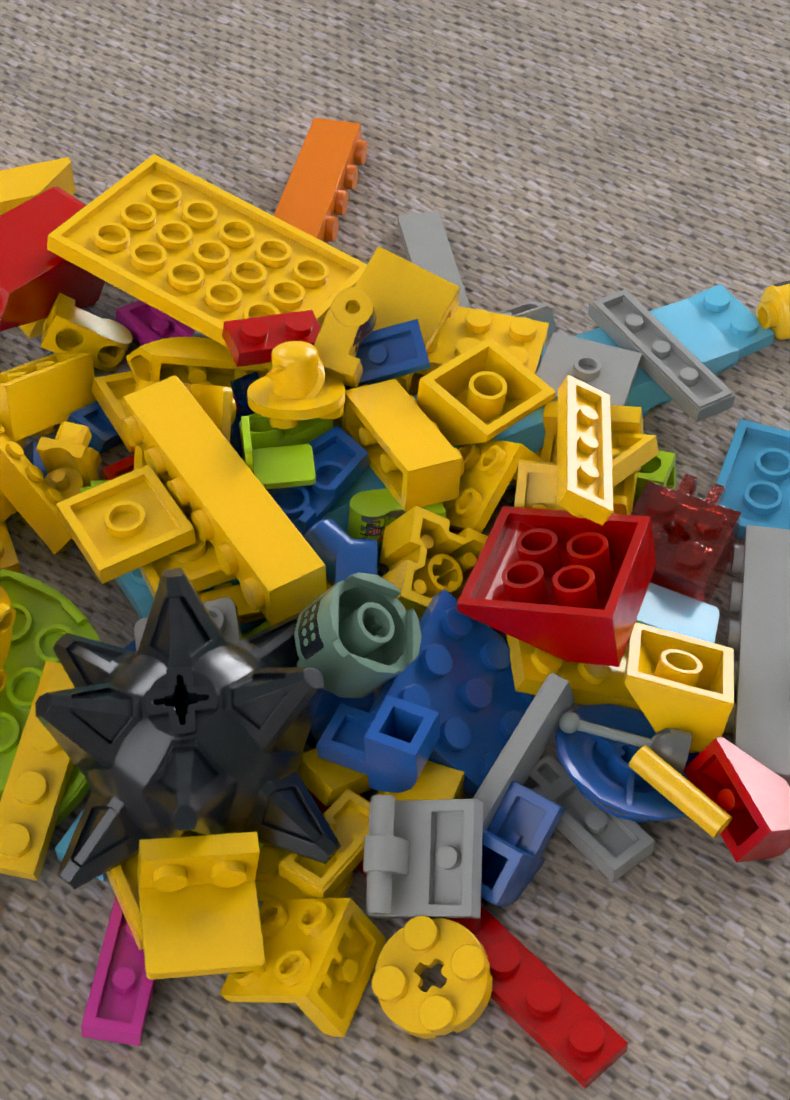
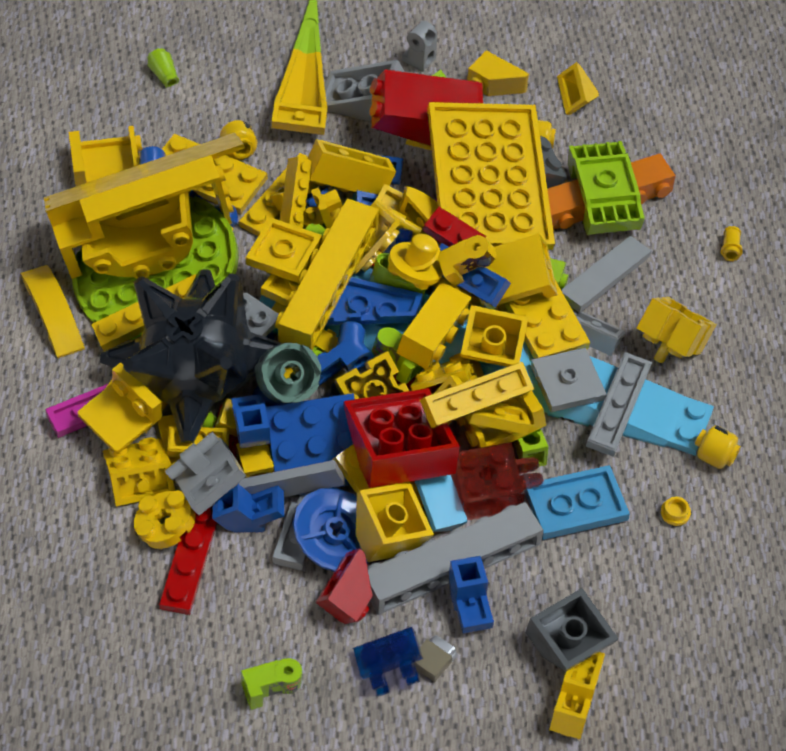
camera: 50 degrees right, 5 degrees up
(78, 331) = (413, 162): yellow leg -> none
(122, 141) = (576, 88): none -> yellow slope
(279, 465) = (366, 281): lime bracket -> none
(321, 179) = (606, 187): none -> lime plate
(498, 146) = (731, 249): none -> yellow pin
(592, 244) = (676, 327): none -> yellow brick
(668, 743) = (348, 538): hinge -> none
(680, 791) = (326, 554): yellow piece -> none

